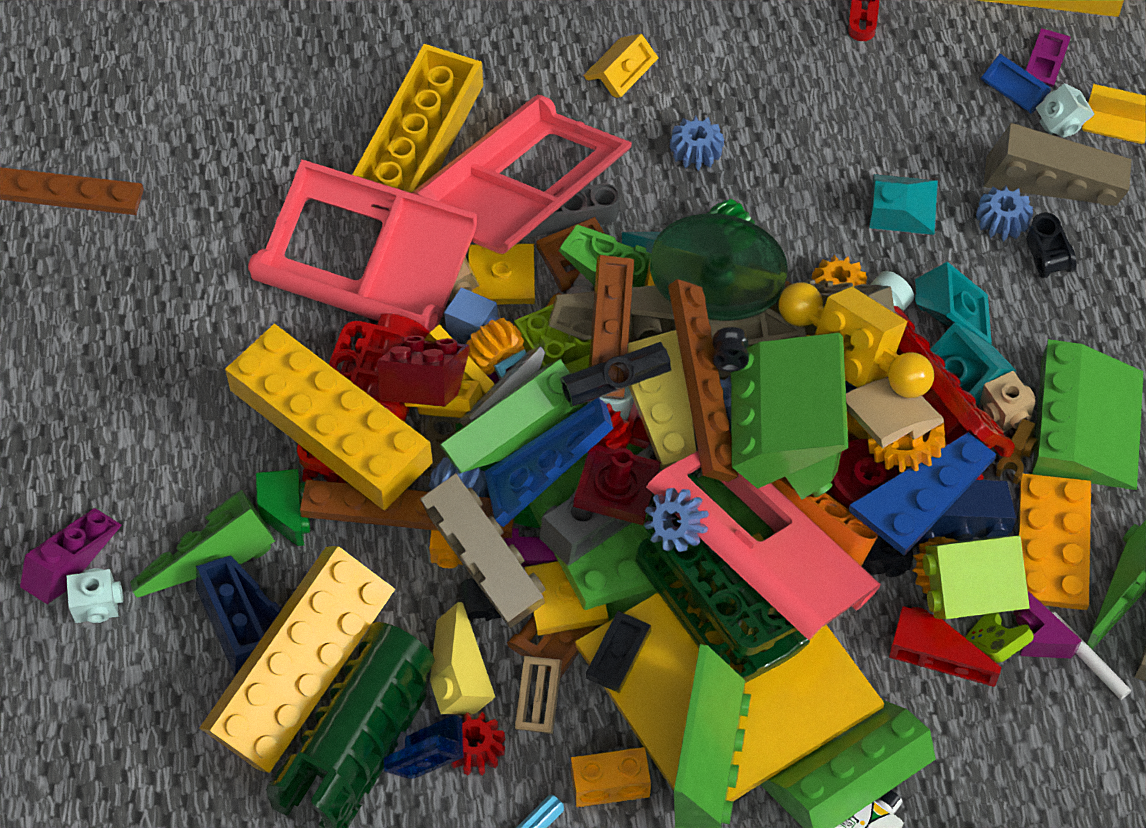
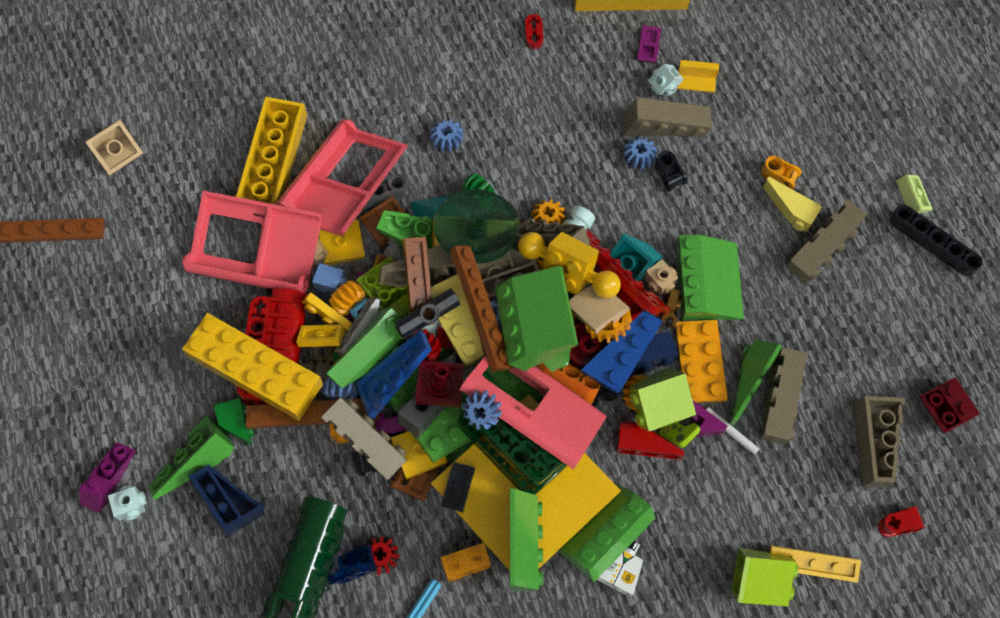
camera: 15 degrees left, 10 degrees up
(178, 85) = (113, 147): none -> tan slope
(297, 658) = (262, 527): yellow brick -> none
(422, 371) = (306, 326): dark red slope -> none
(458, 669) = (362, 510): light yellow slope -> none
(535, 725) = (412, 498): tan tile -> none
(623, 64) = (391, 88): yellow panel -> none
(730, 349) = (495, 287): black wheel -> none
(903, 204) = (578, 155): teal slope -> none
(954, 298) = (619, 217): teal slope -> none
(1015, 83) = (633, 65): blue tile -> none

